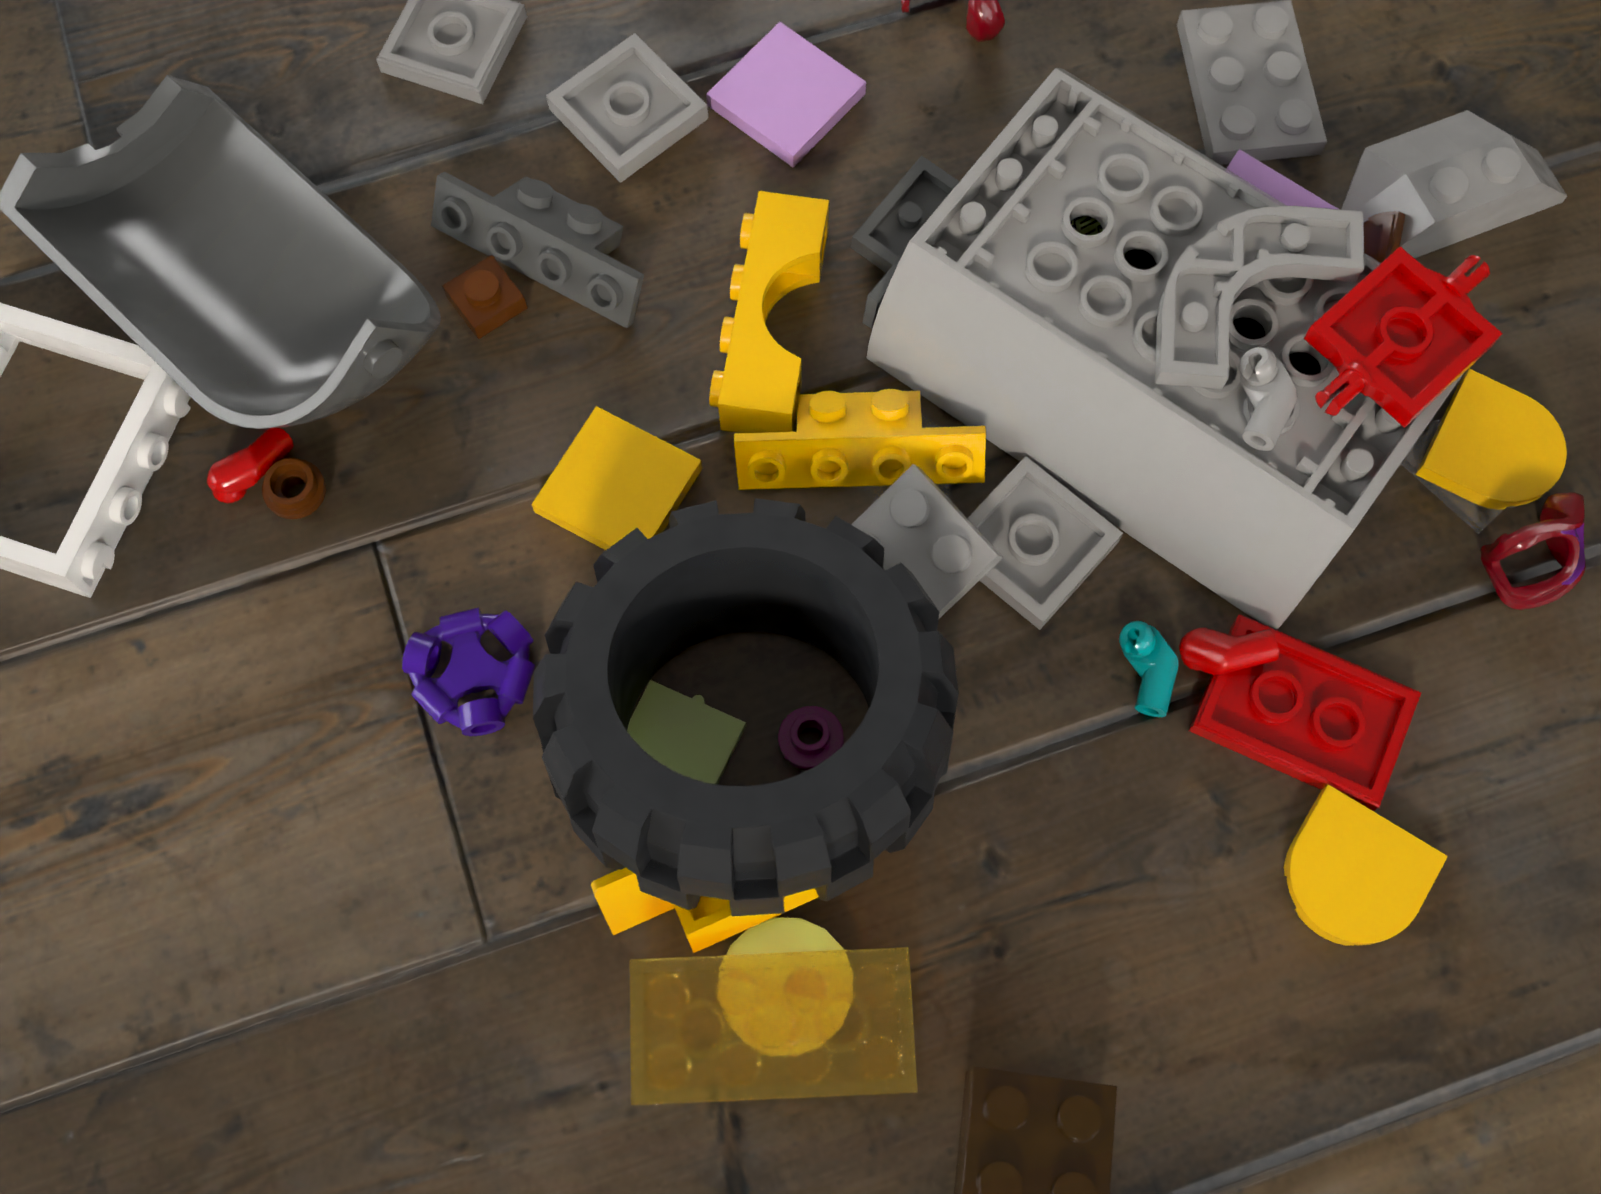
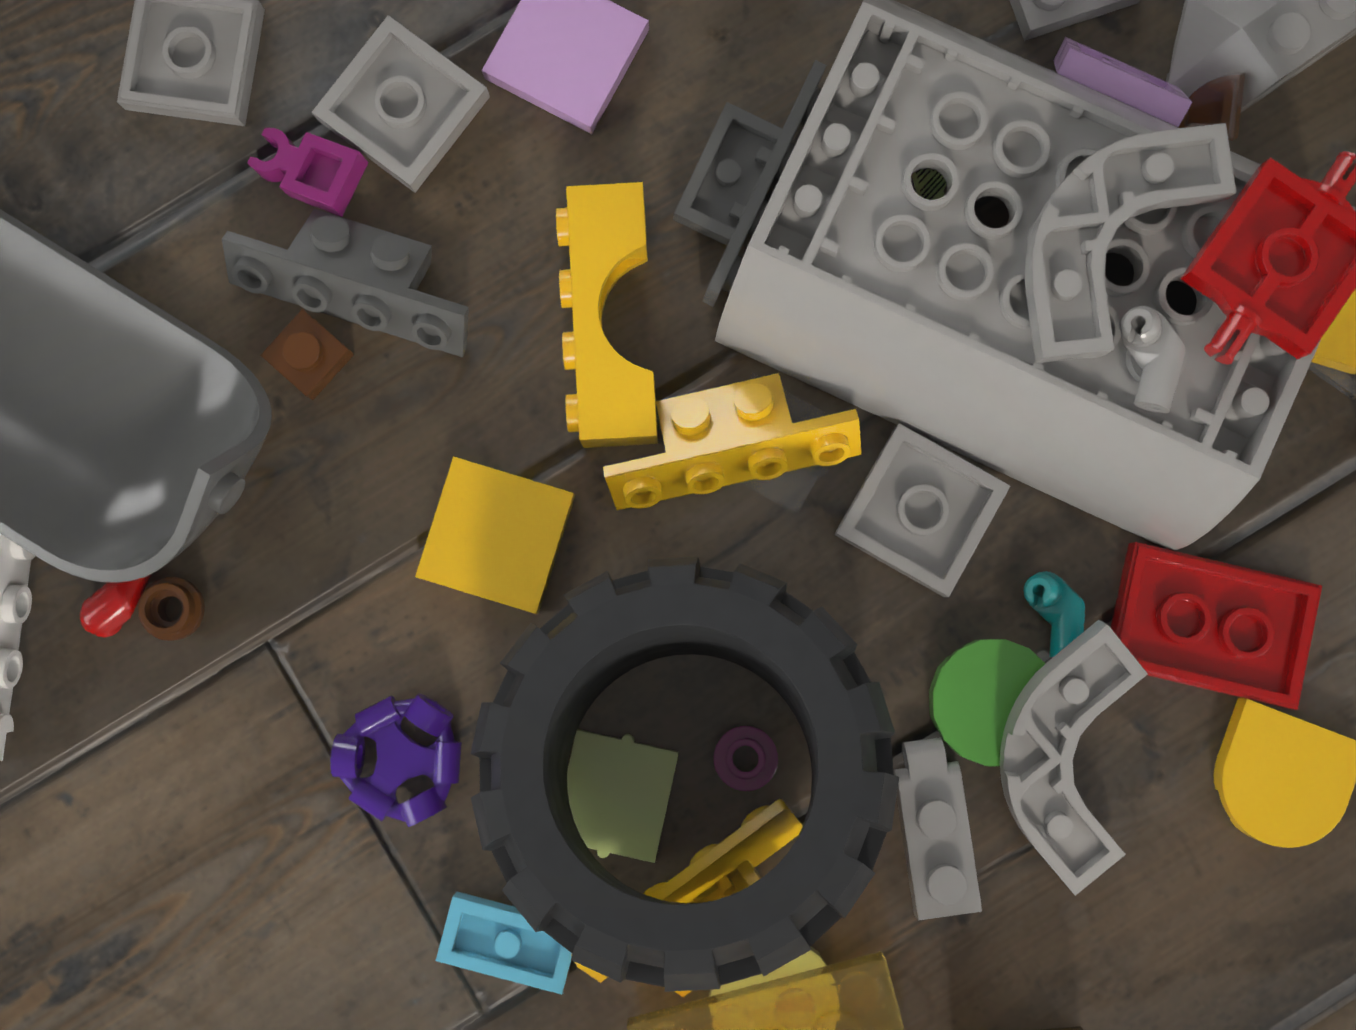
camera: 10 degrees left, 15 degrees up
(530, 865) = (501, 944): none -> medium azure plate
(534, 147) = (314, 172): none -> magenta plate
(929, 538) = (812, 543): light grey plate -> none
(987, 855) = (936, 832): none -> light grey hinge
(1070, 738) = (976, 694): none -> bright green tile
(1104, 792) = (1042, 744): none -> light grey plate
(1223, 653) = (1129, 591): red arm -> none

